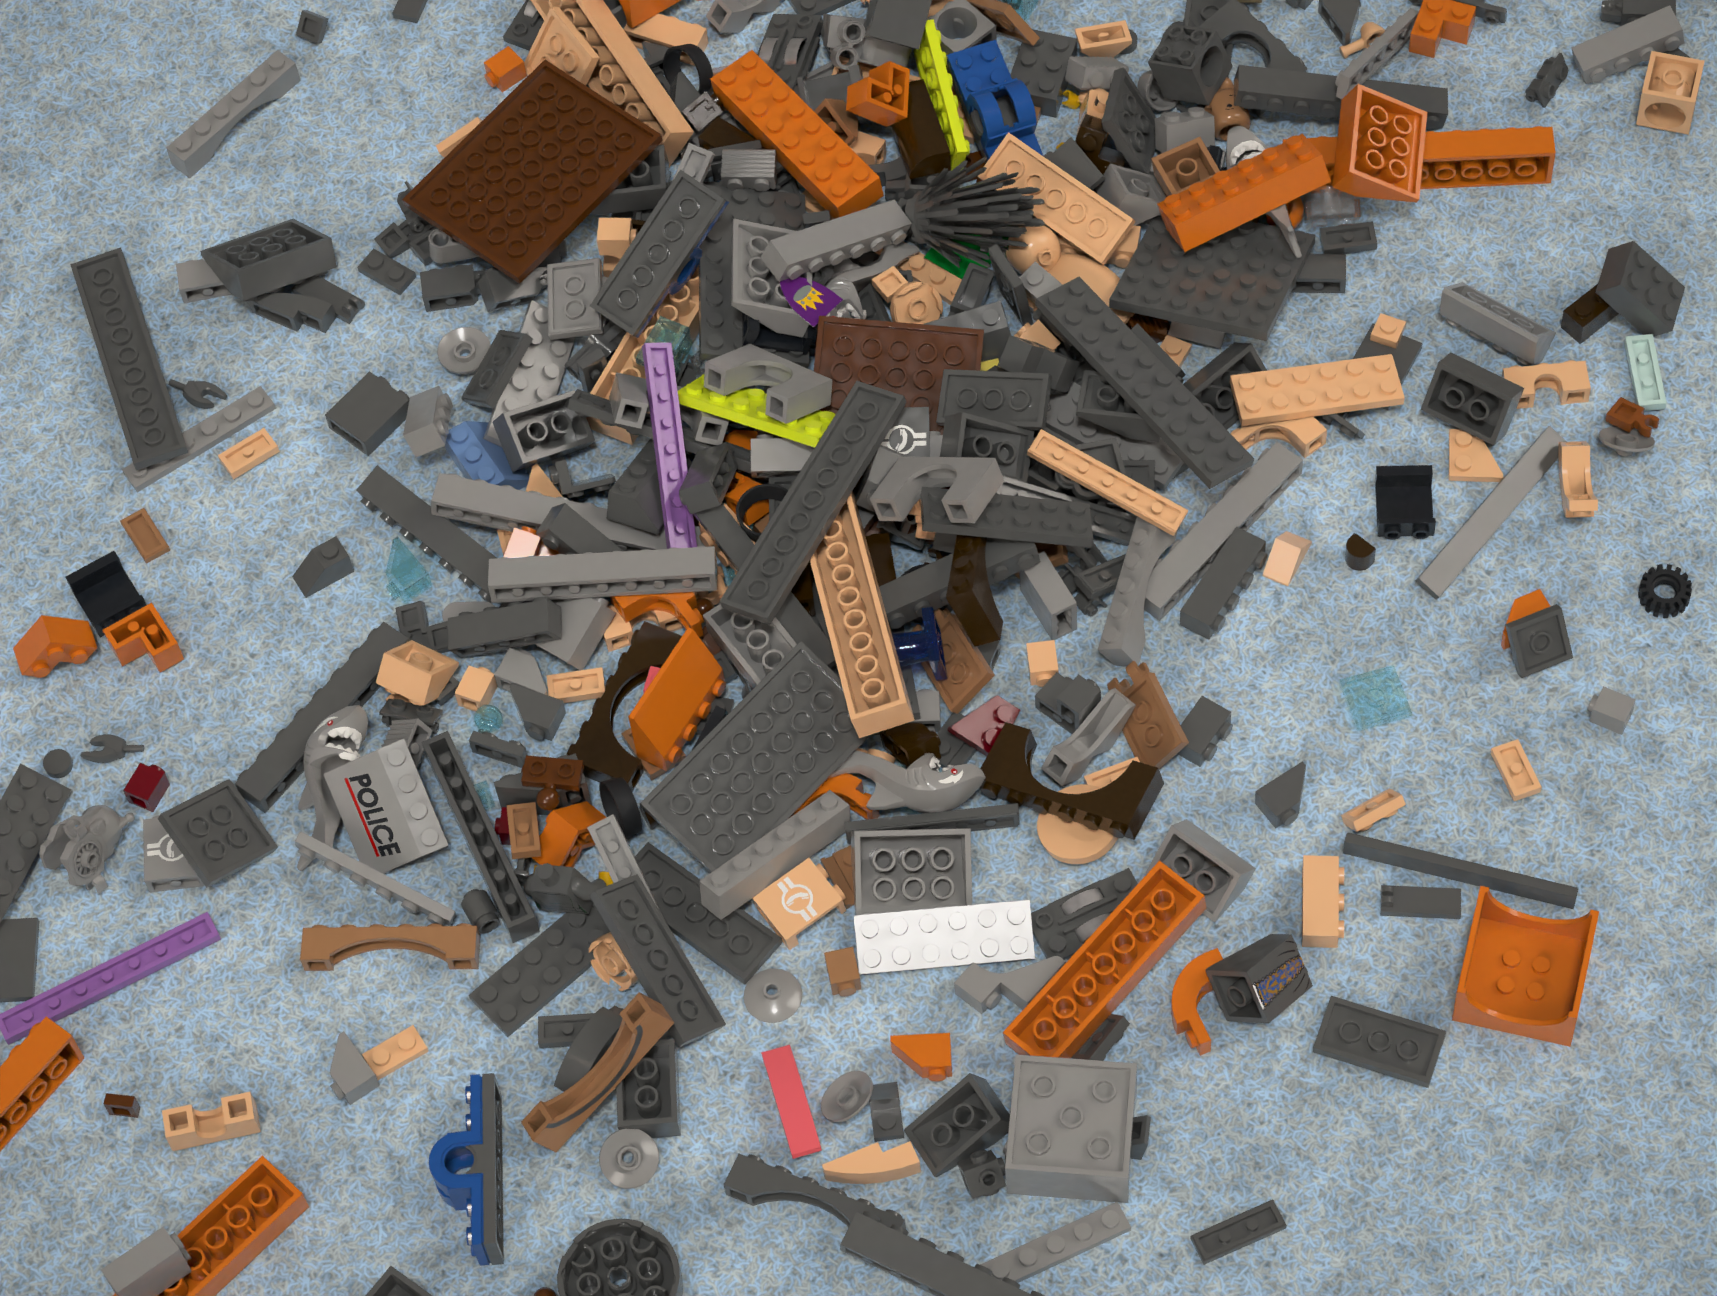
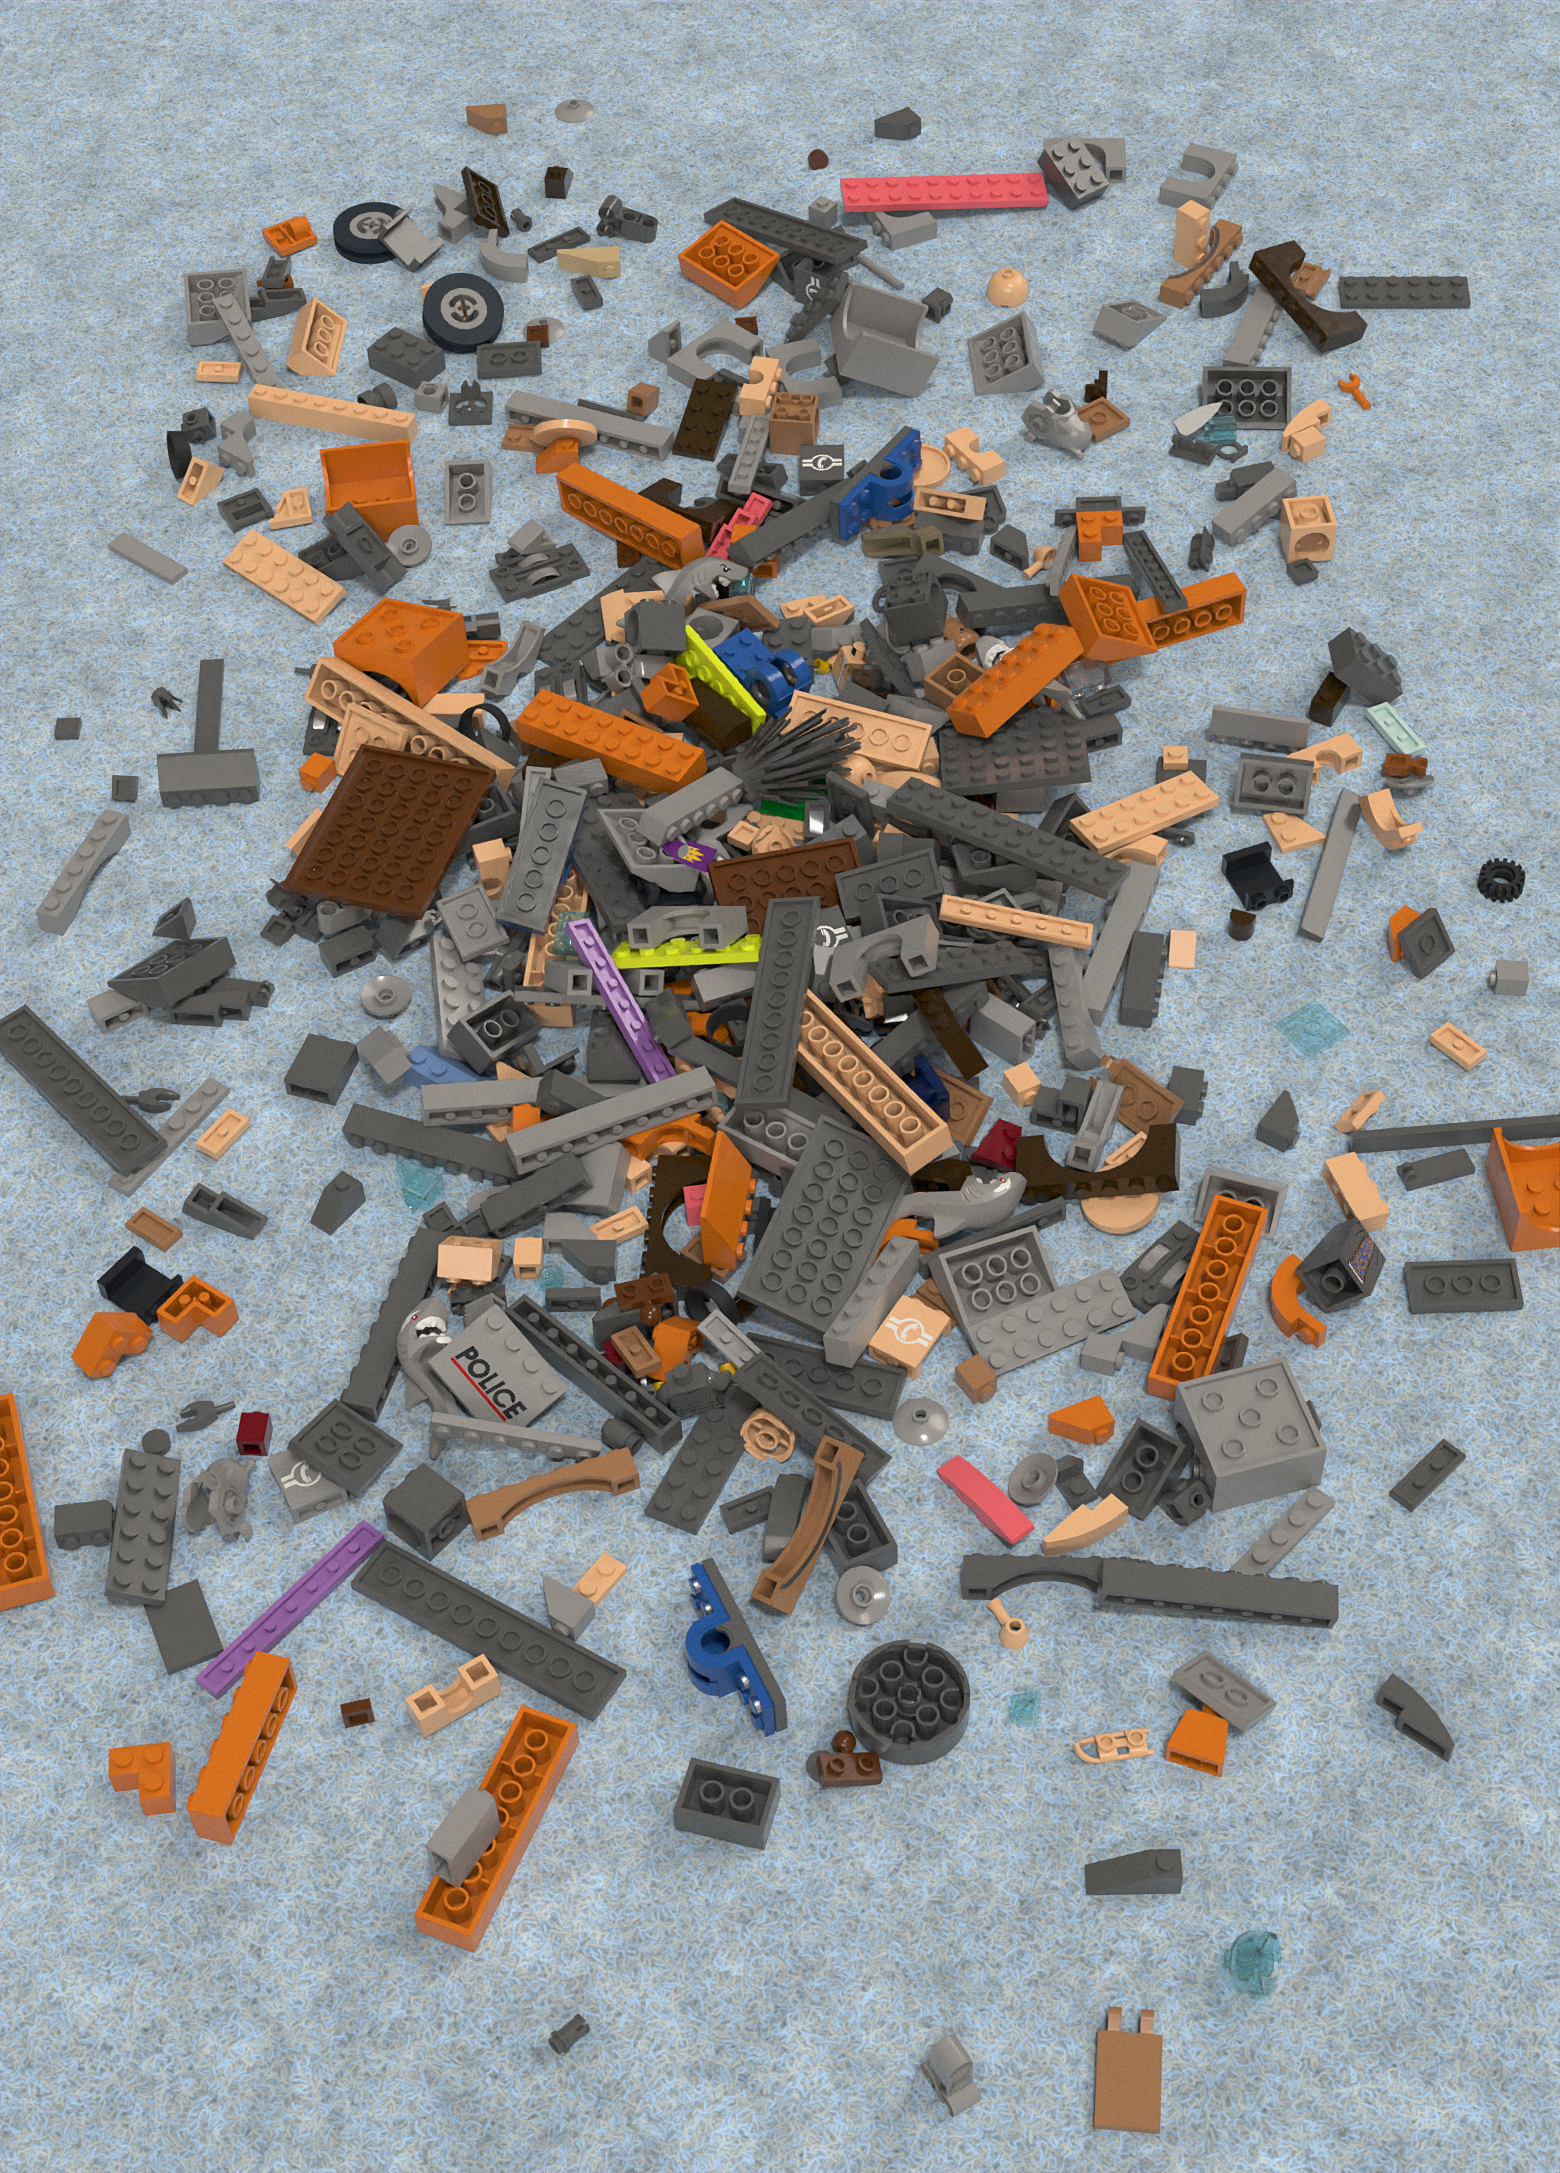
camera: 25 degrees left, 10 degrees down
(214, 540) = (223, 1212): none -> dark grey slope
(262, 926) = (426, 1511): none -> dark grey brick
(275, 1065) = (489, 1628): none -> dark grey plate
(300, 200) = (177, 921): none -> dark grey slope
(386, 271) = (283, 956): dark grey plate -> none
(393, 44) = (208, 777): none -> dark grey slope
(496, 368) = (426, 997): dark grey tile -> none
(703, 111) = (516, 750): bracket -> none
(761, 1254) = (1010, 1639): none -> light nougat bar
(1081, 18) = (795, 608): none -> light nougat plate
(1471, 97) = (1154, 571): none -> dark grey tile
(1645, 140) = (1302, 571): none -> dark grey plate

